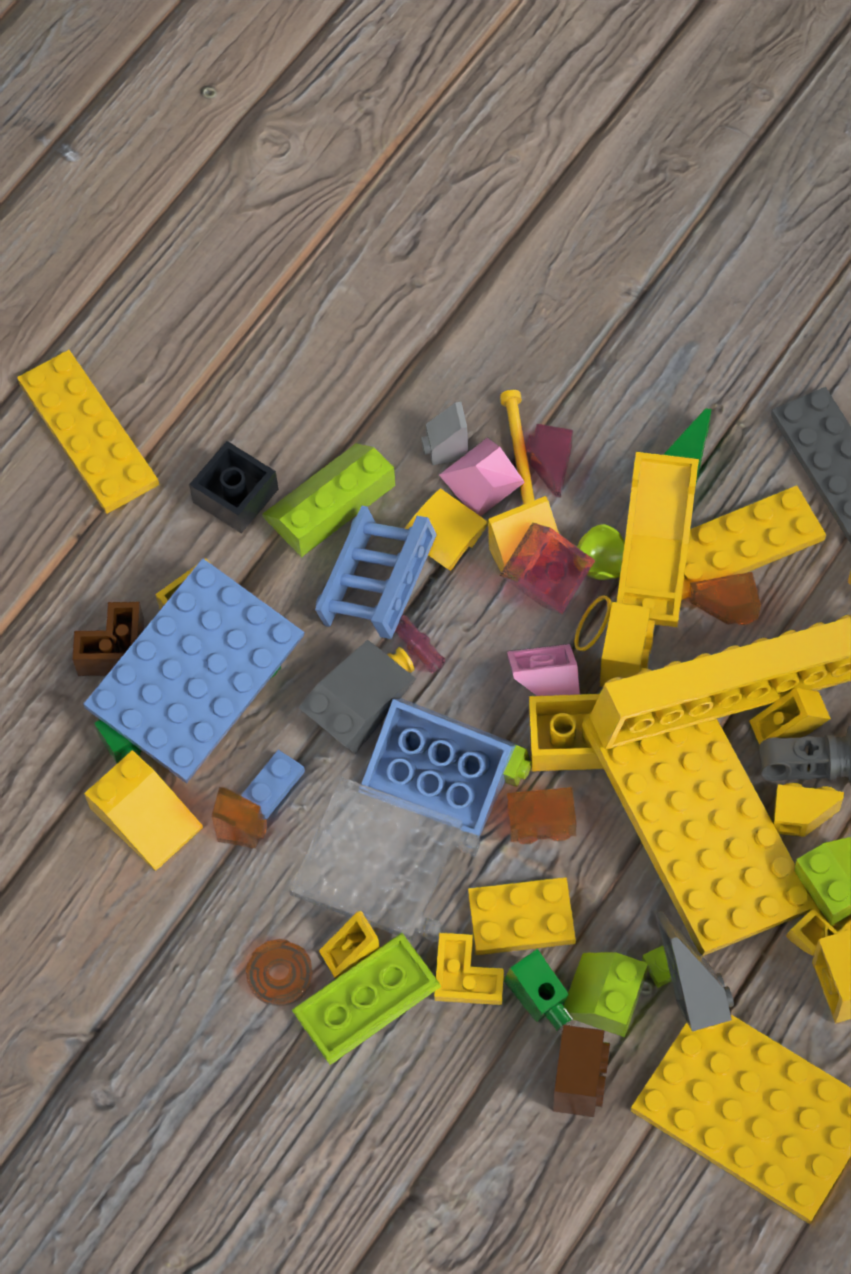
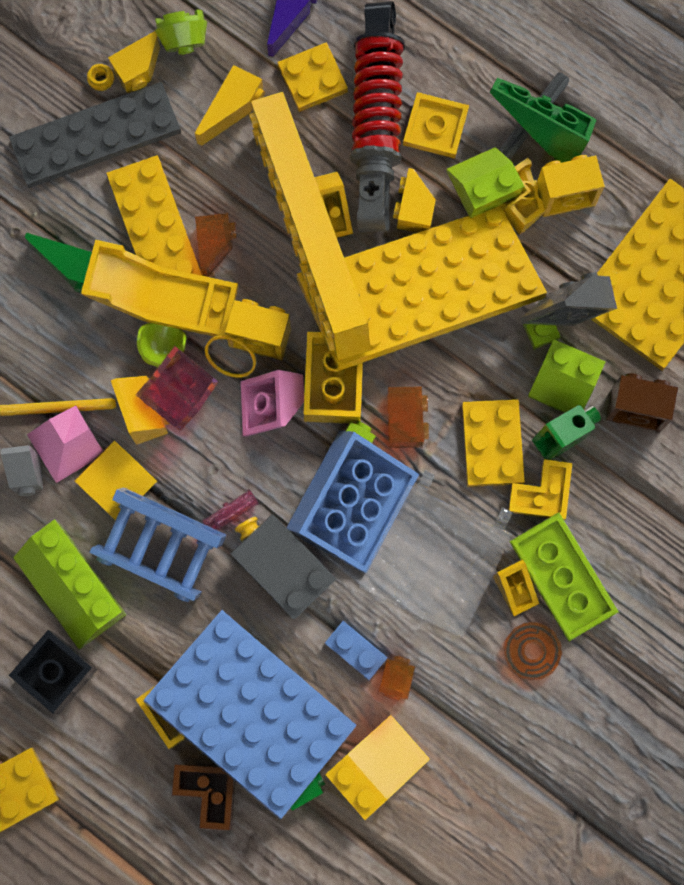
camera: 90 degrees left, 15 degrees up
(550, 455) = (52, 379): clear pink slope -> none

